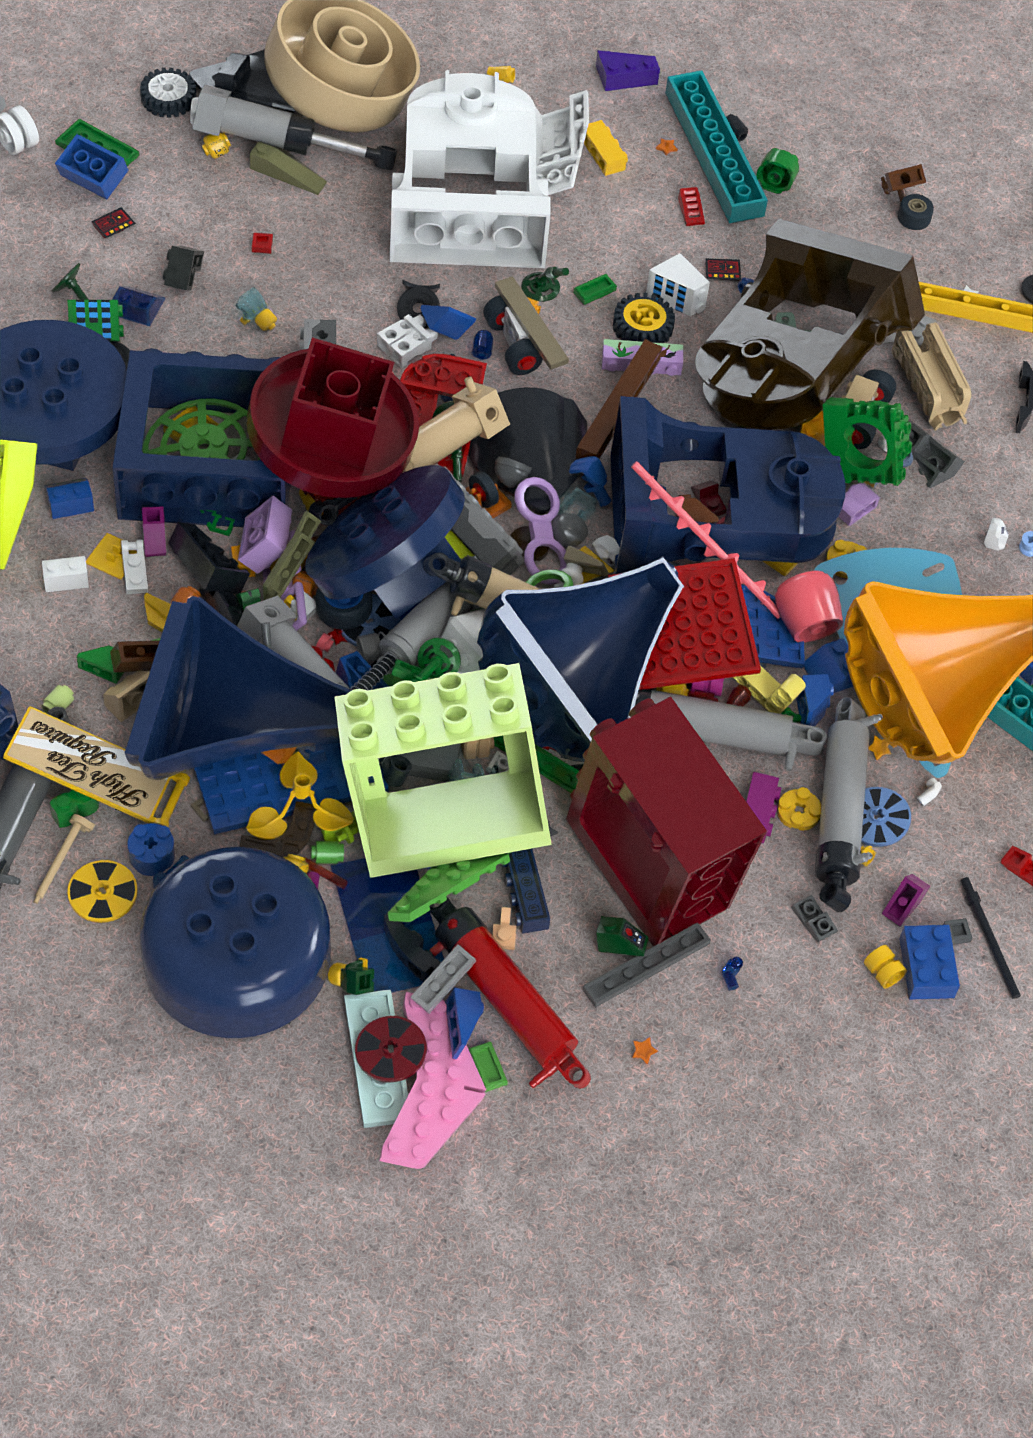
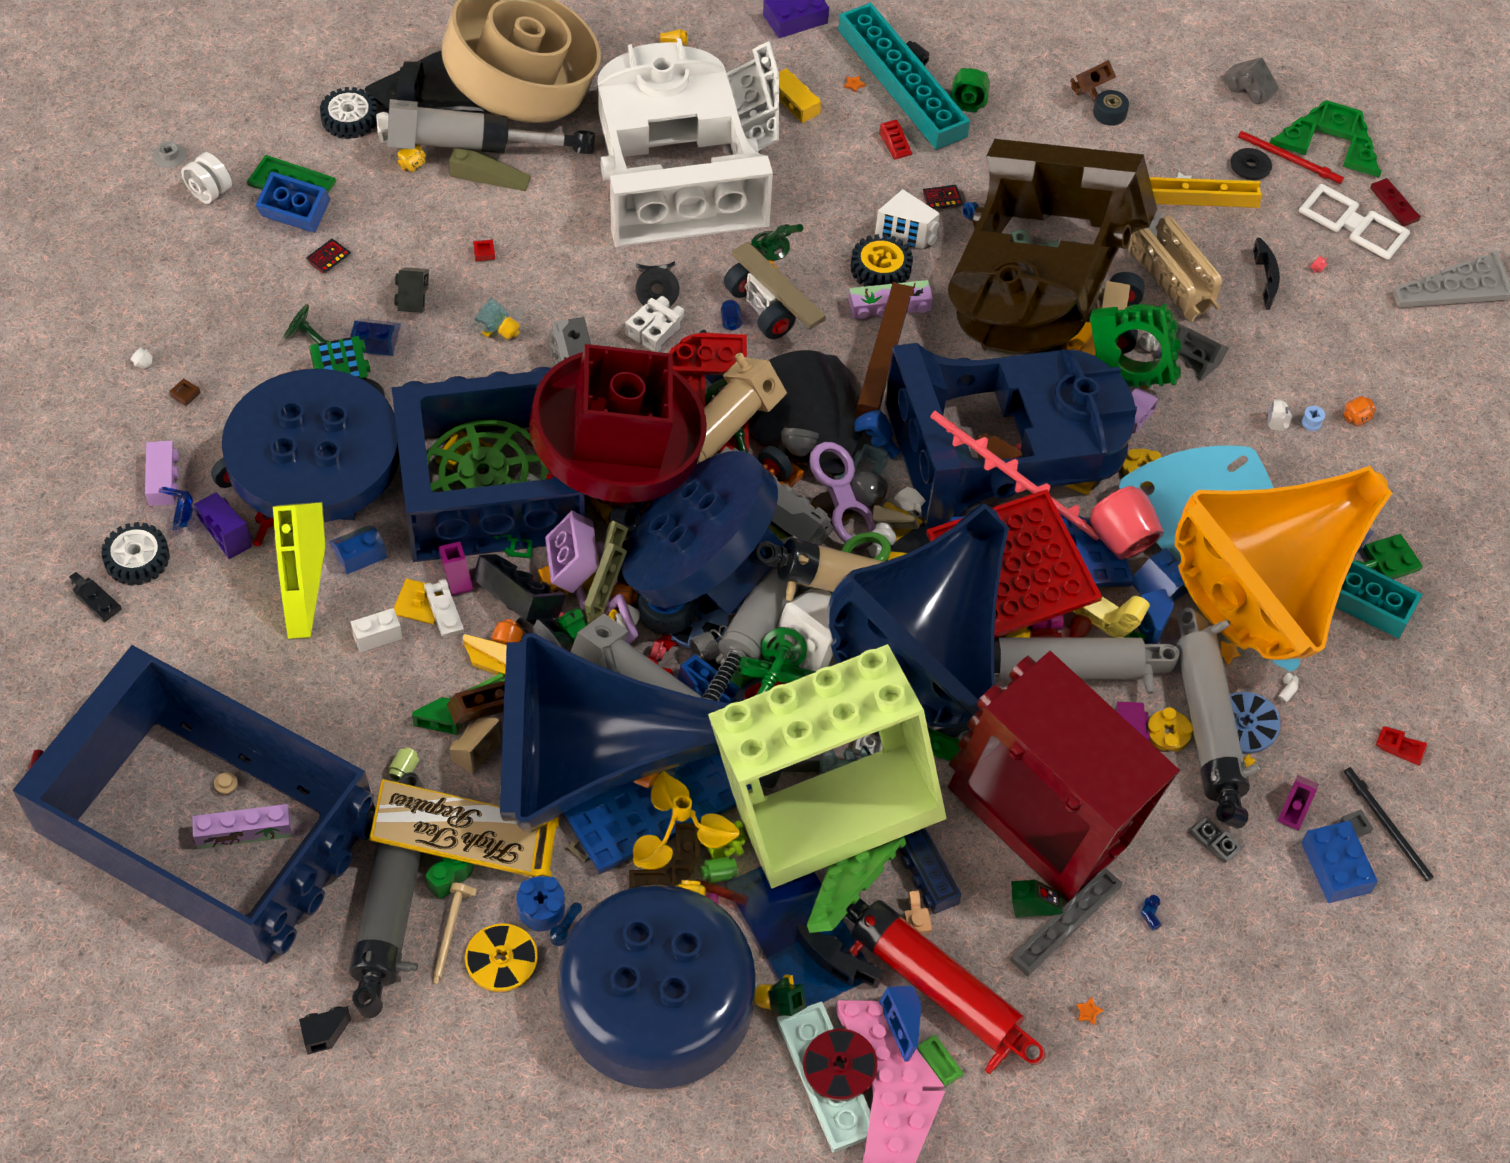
camera: 10 degrees left, 0 degrees up
(443, 979) = (875, 980): light grey plate -> none
(447, 320) = (691, 297): blue slope -> none
(595, 289) = (824, 239): green plate -> none
(708, 495) = (992, 424): dark red slope -> none
(882, 964) = (1298, 875): yellow wheel -> none

